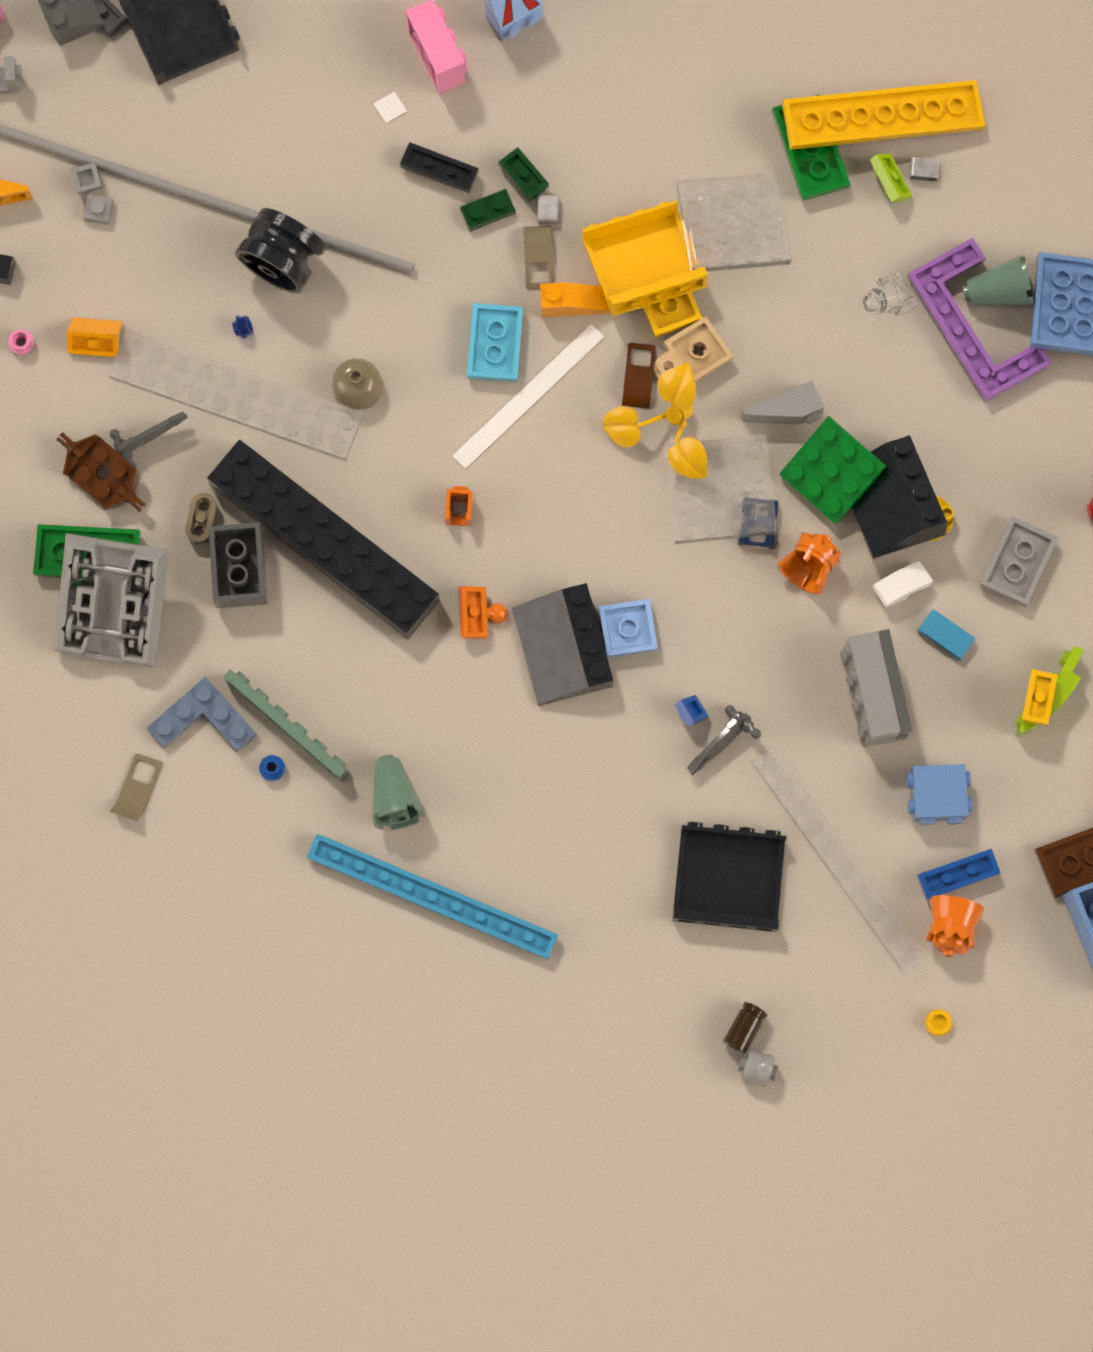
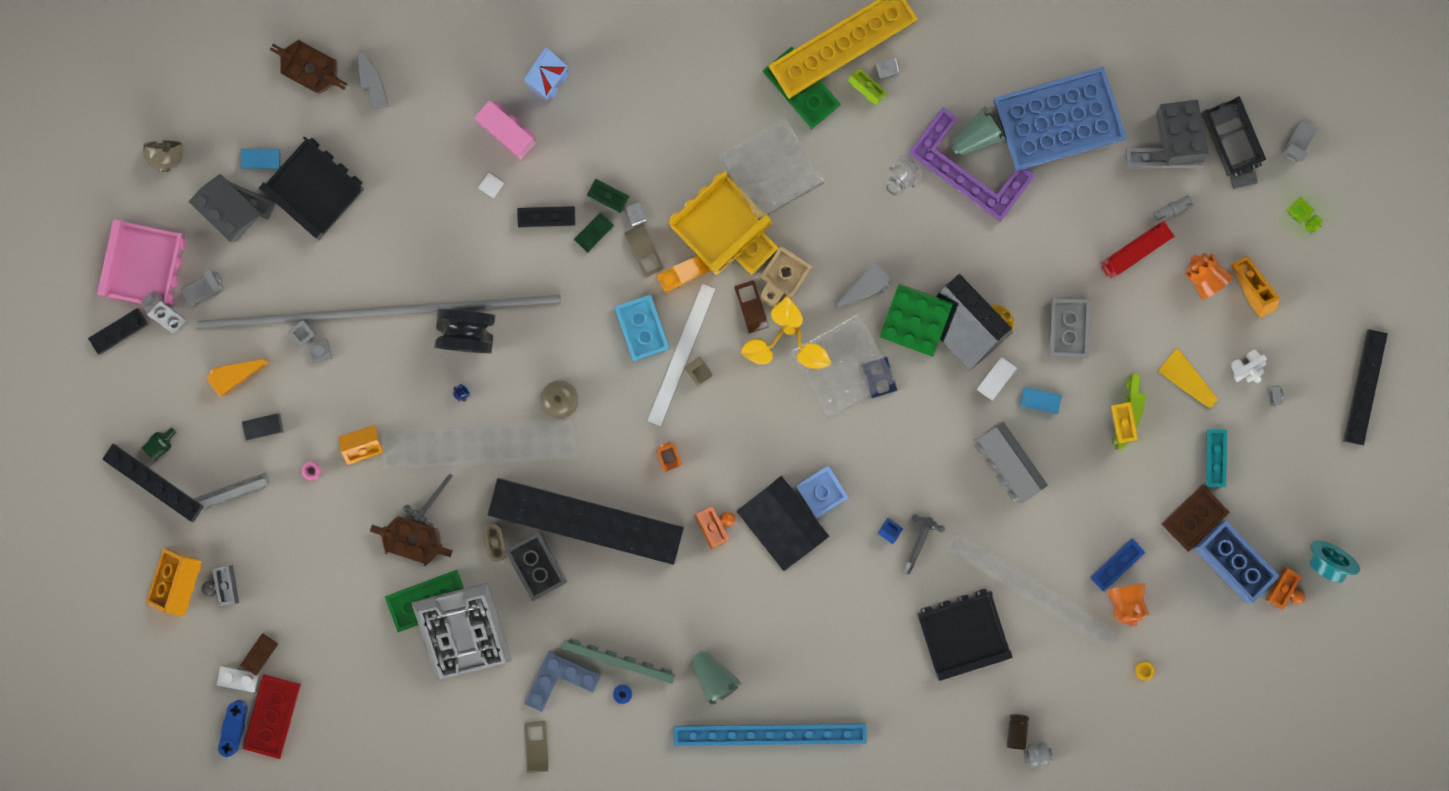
camera: 25 degrees left, 10 degrees up
(540, 420) = (698, 371): none -> dark tan panel
(810, 562) = (928, 392): orange hat -> none
(939, 793) = (1082, 516): medium blue brick -> none

